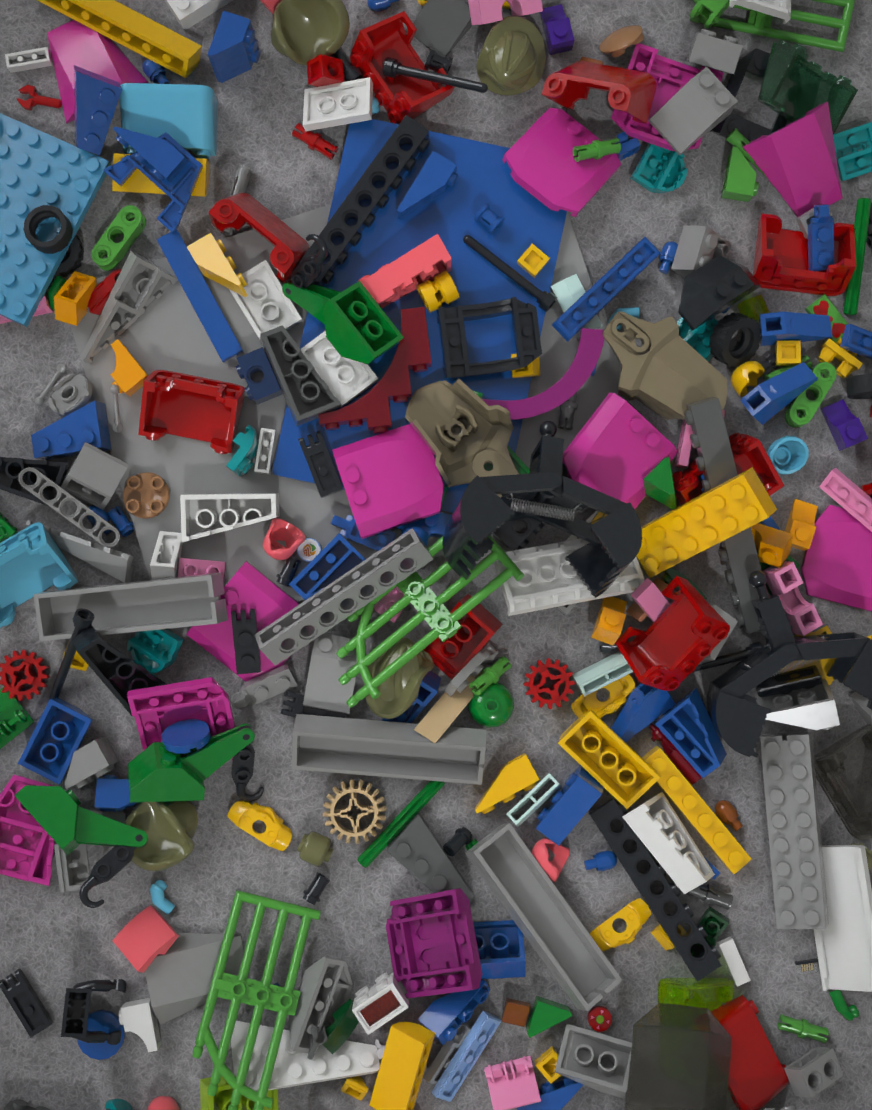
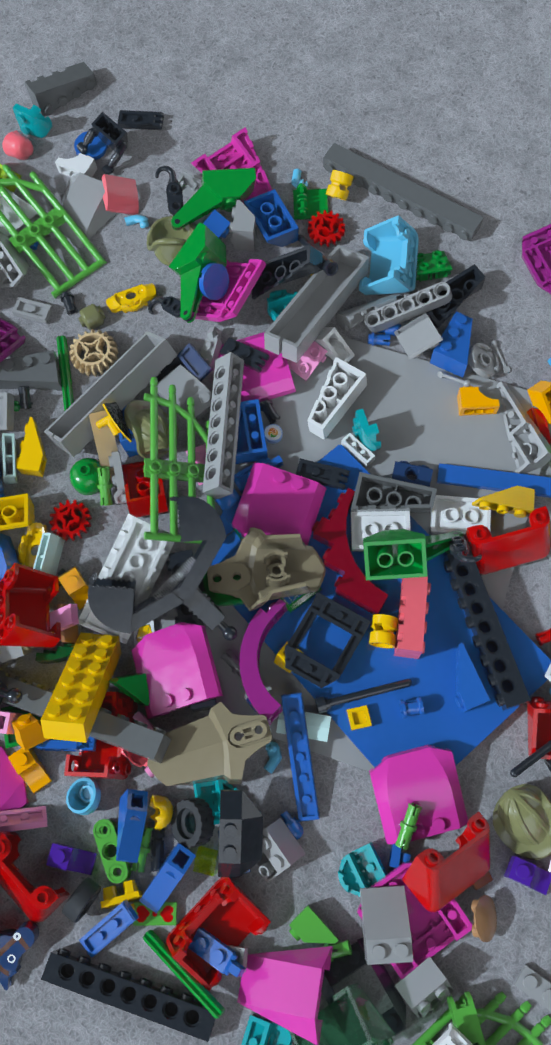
camera: 135 degrees right, 15 degrees down
(146, 495) = (383, 361): medium nougat dish -> none
(191, 409) = (422, 423): red windscreen -> none
(282, 531) = (289, 413): coral hair -> none
(290, 690) = (194, 362): none -> dark blue tile
(354, 921) = (32, 310): none -> light grey plate
(422, 710) = (115, 421): none -> shield
(788, 353) = (153, 857): yellow tile -> none

